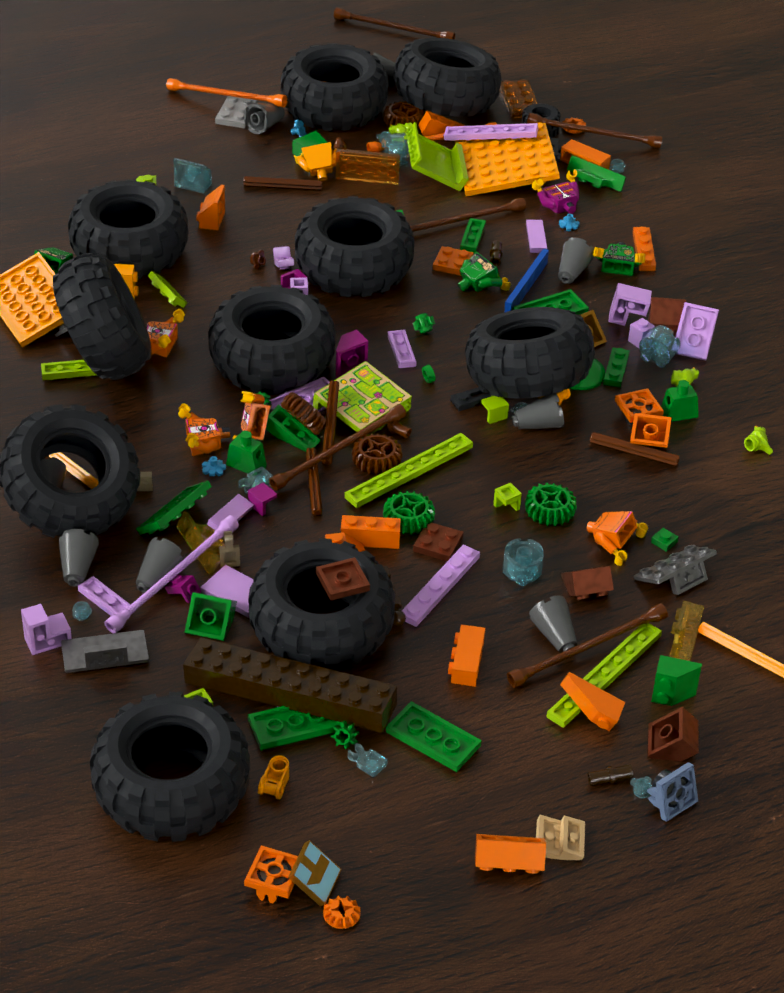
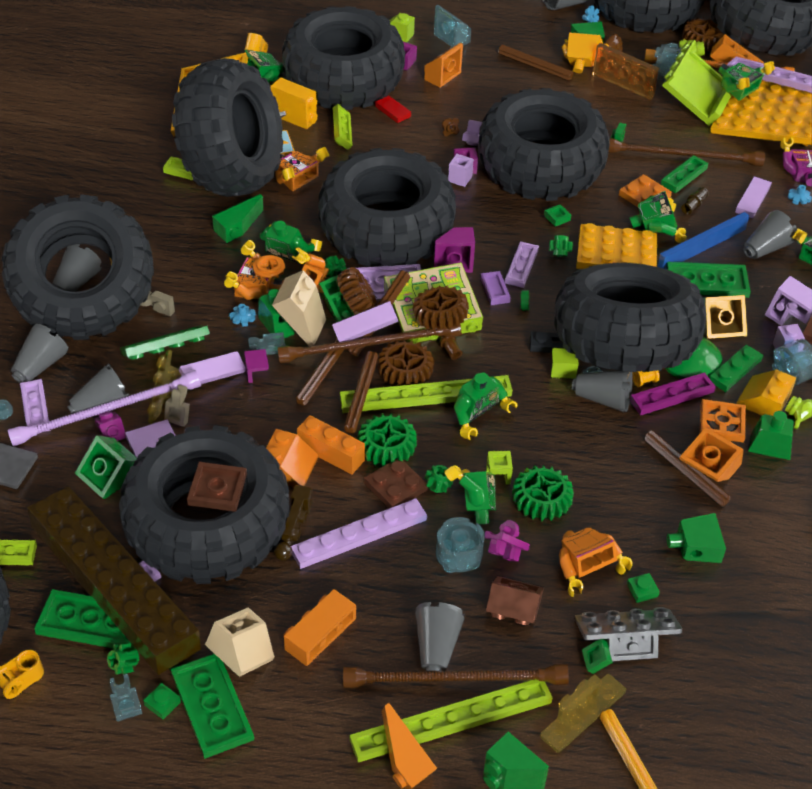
camera: 30 degrees right, 5 degrees up
(31, 243) = (256, 43): none -> light orange piece
(143, 397) = (237, 219): none -> green slope
(195, 261) = (393, 109): none -> red tile
(204, 396) = (283, 240): none -> green torso
(218, 417) = (276, 263): none -> orange gear
(267, 436) = (301, 306): none -> tan slope
(327, 433) = (365, 322): none -> lavender tile
(363, 485) = (361, 392): none -> reddish brown axle
(381, 399) = (440, 308): none -> reddish brown gear
(394, 750) = (162, 701): none -> green plate
(396, 373) = (495, 288): none -> medium lavender tile
(401, 301) = (557, 215): none -> green plate
(424, 685) = (241, 641): none -> tan slope
(456, 457) = (478, 397): none -> green torso
(465, 310) = (615, 245): none -> light orange plate
(468, 144) = (743, 80): none -> torso
(470, 523) = (437, 479): none -> green gear
(509, 517) = (478, 491): none -> green torso
(555, 544) = (505, 542): none -> magenta hips
(587, 401) = (672, 393): none -> magenta plate
(653, 374) = (767, 392): none -> light orange slope
(669, 593) = (597, 656): none -> green plate
(680, 492) = (699, 539): none -> green torso

